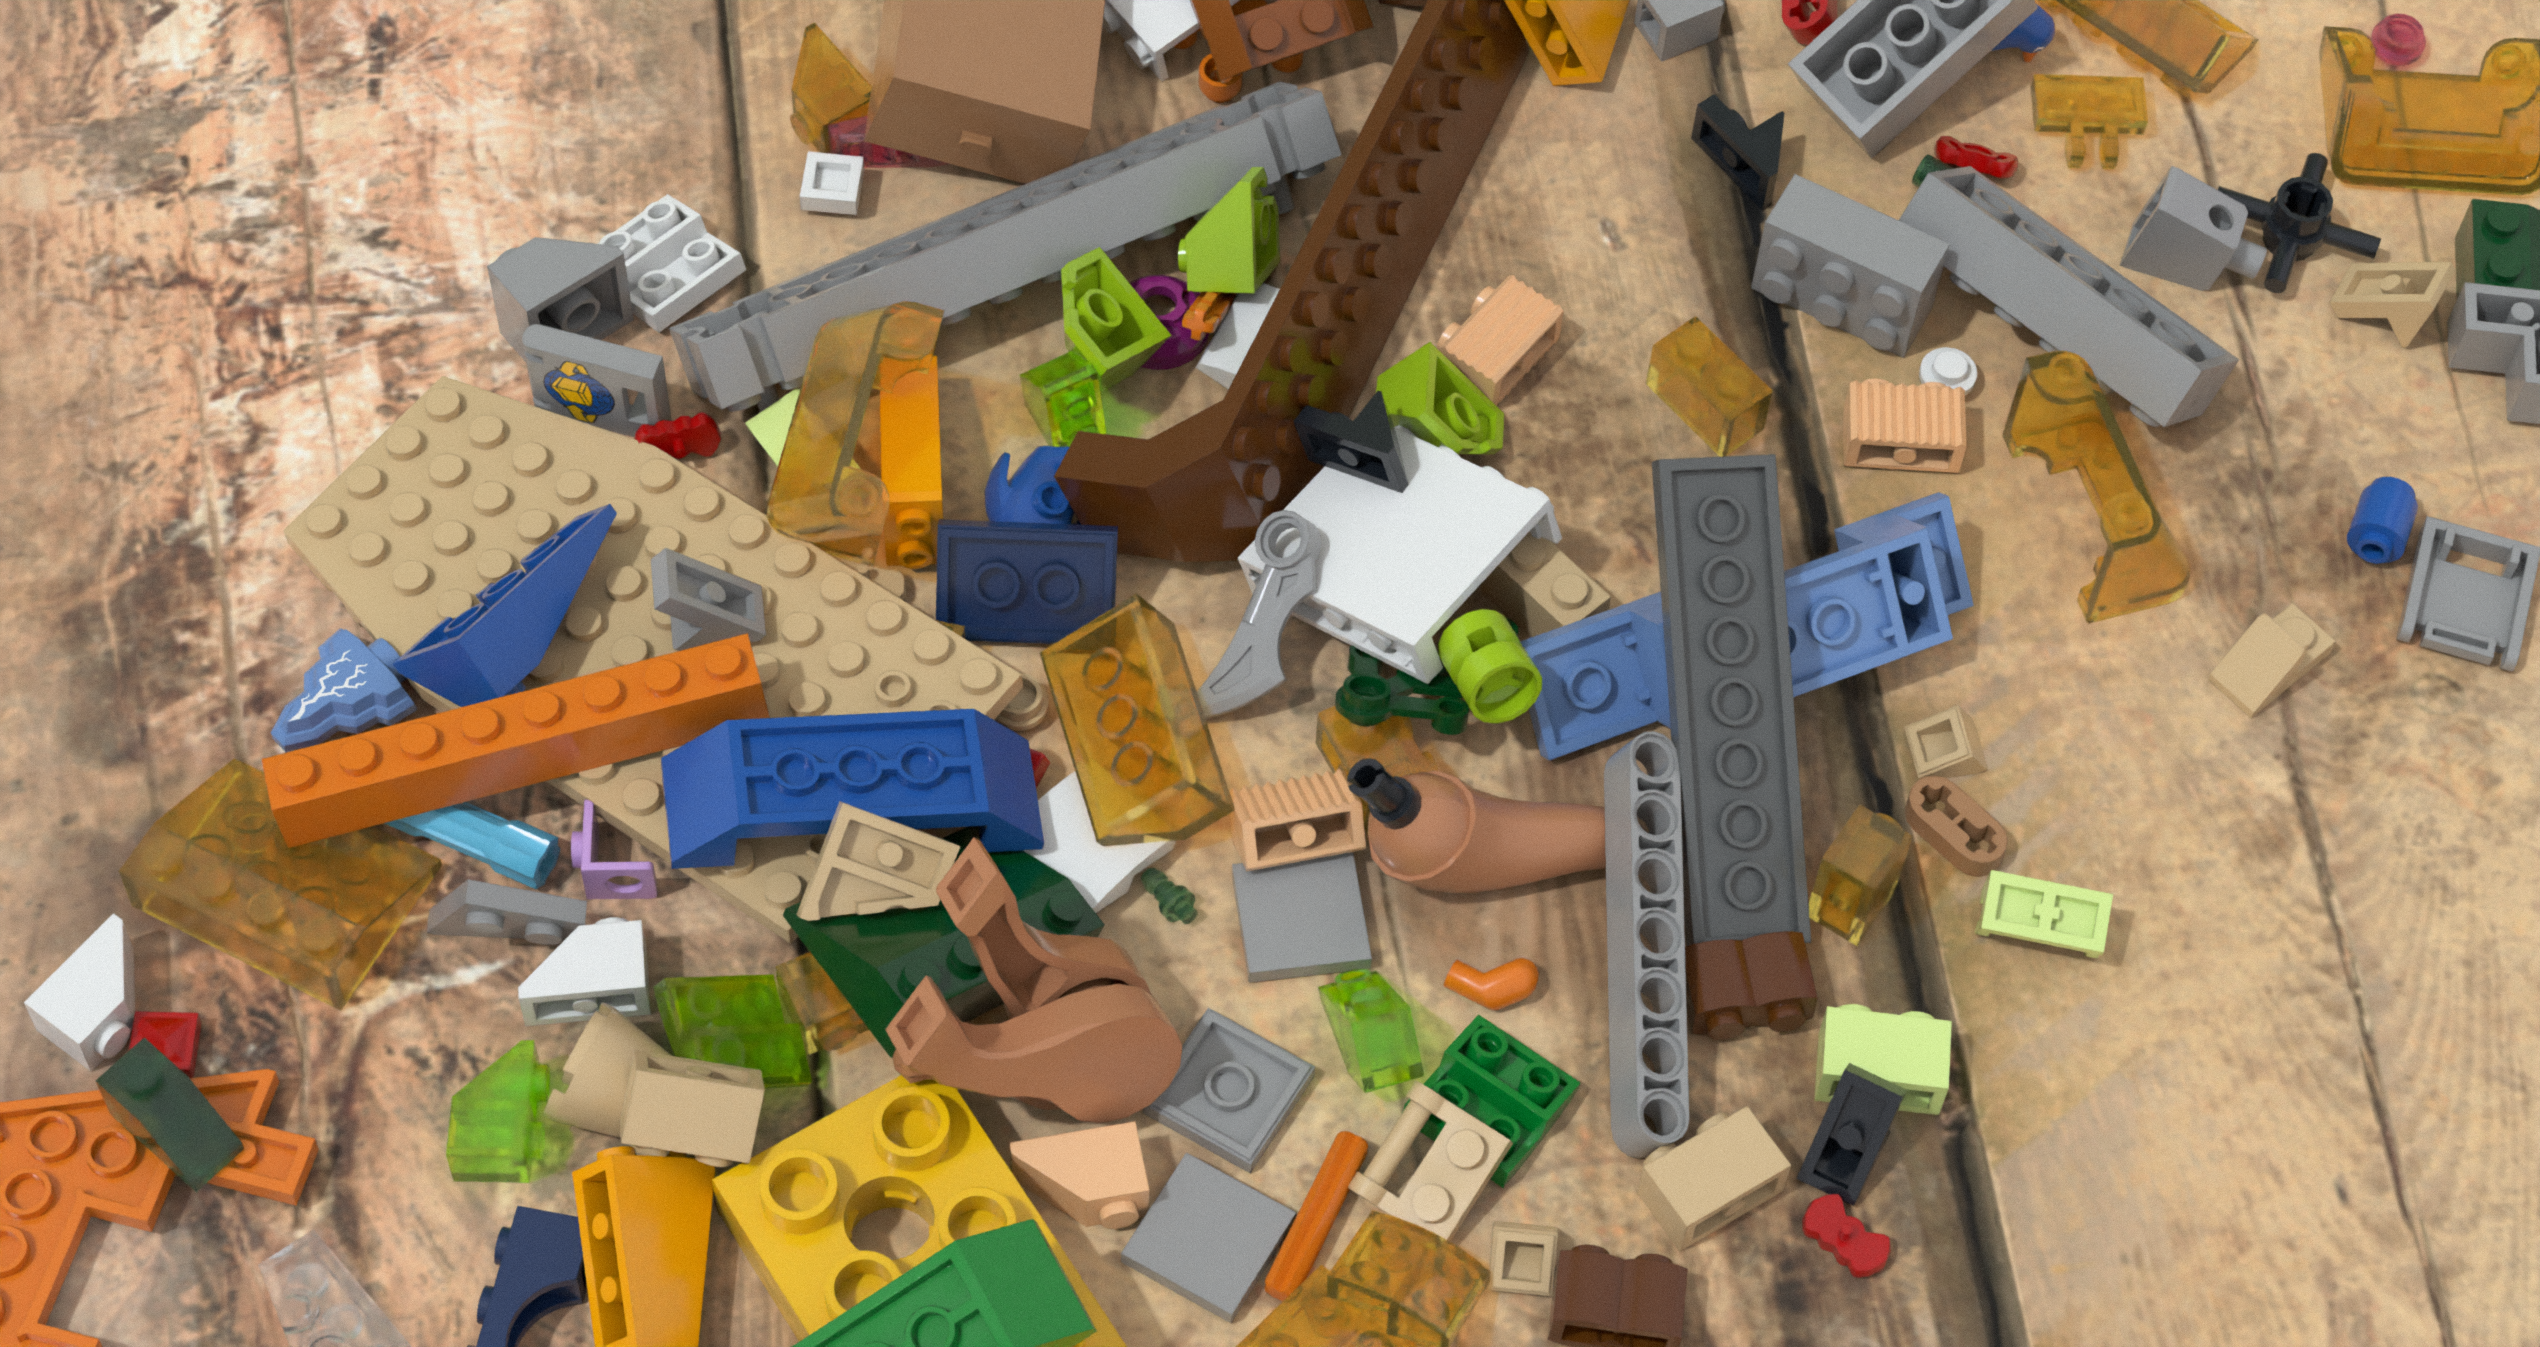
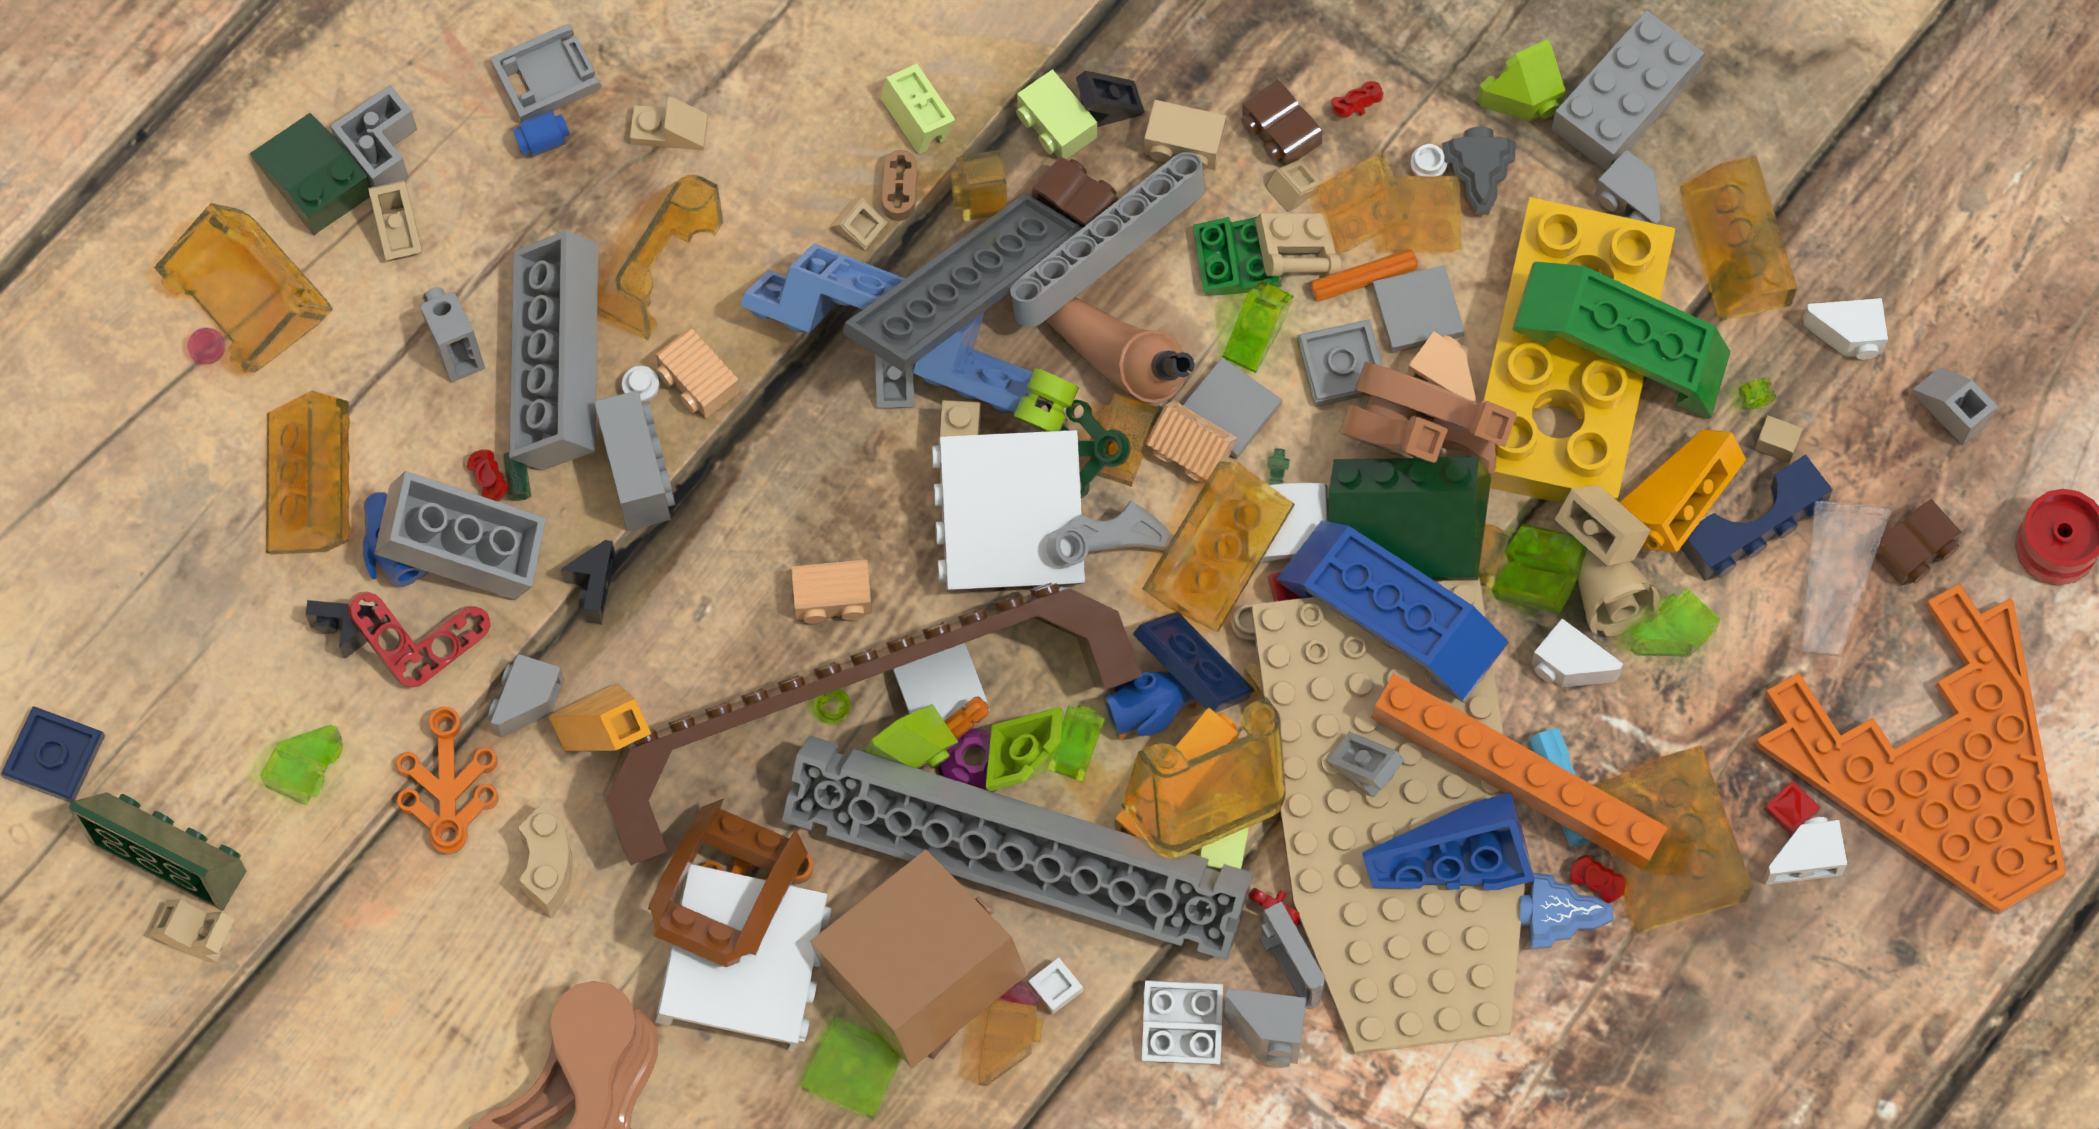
camera: 130 degrees left, 10 degrees up
(168, 1114) = (1828, 748): clear green slope -> none
(506, 912) = (1589, 718): light grey wing -> none
(596, 874) = (1527, 702): lavender bracket -> none
(874, 867) = (1424, 543): tan wing -> none
(1358, 447) = (980, 552): black slope -> none
(1441, 404) = (910, 571): lime slope -> none
(1497, 987) = (1182, 298): orange arm -> none
(1708, 387) = (764, 473): clear yellow brick -> none
(1845, 1236) = (1152, 71): red piece -> none
(2089, 106) = (398, 447): clear yellow hinge -> none
(2300, 222) = (387, 311): black bar -> none

